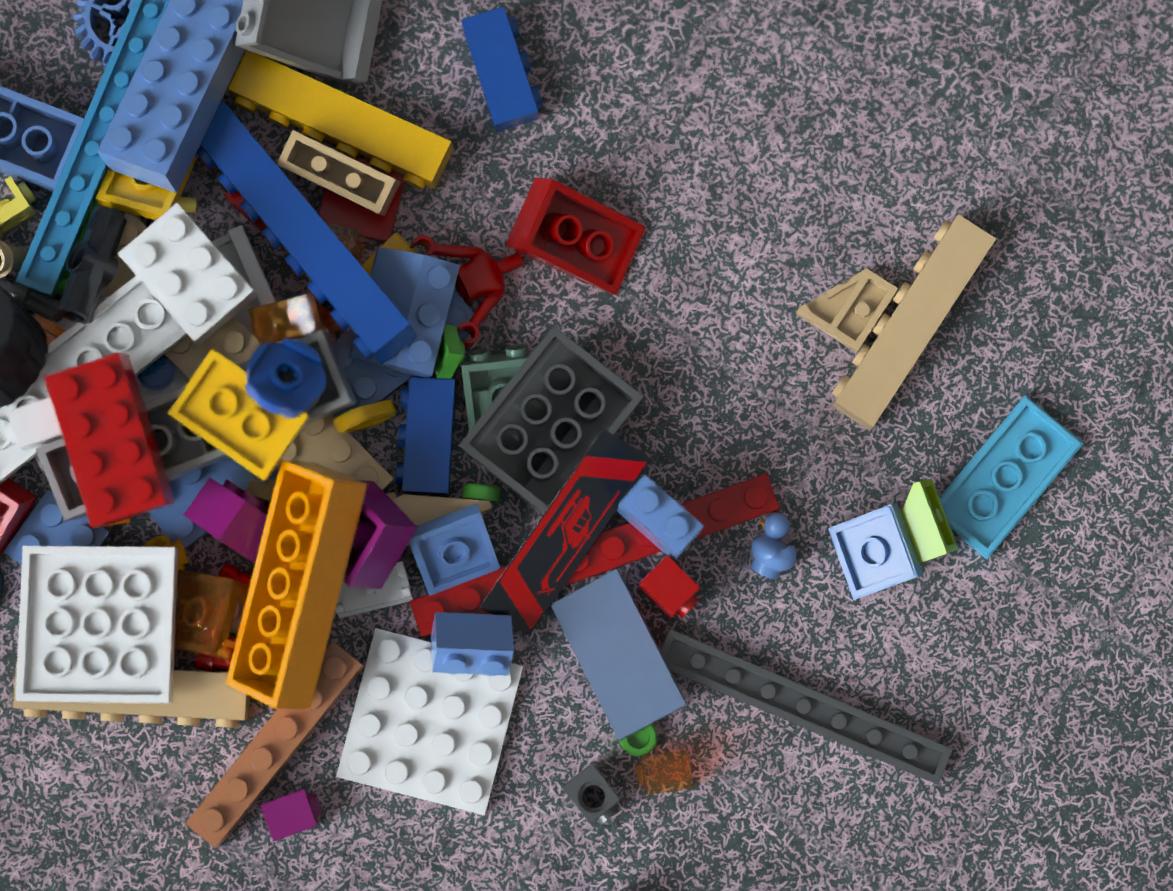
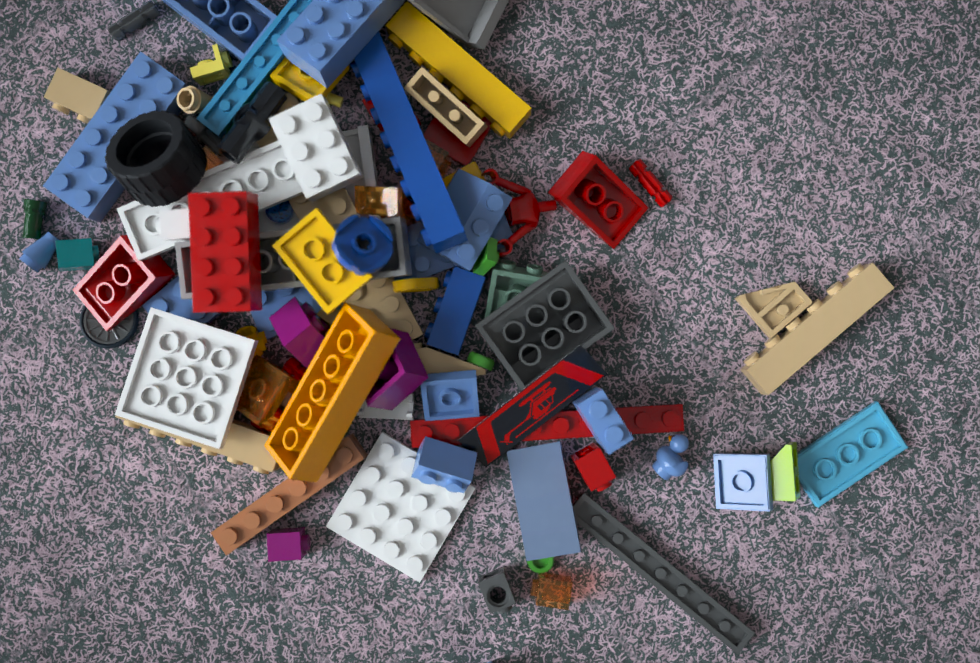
camera: 20 degrees right, 5 degrees up
(501, 68) = (581, 67): blue brick -> none
(639, 193) = (650, 183): none -> red axle

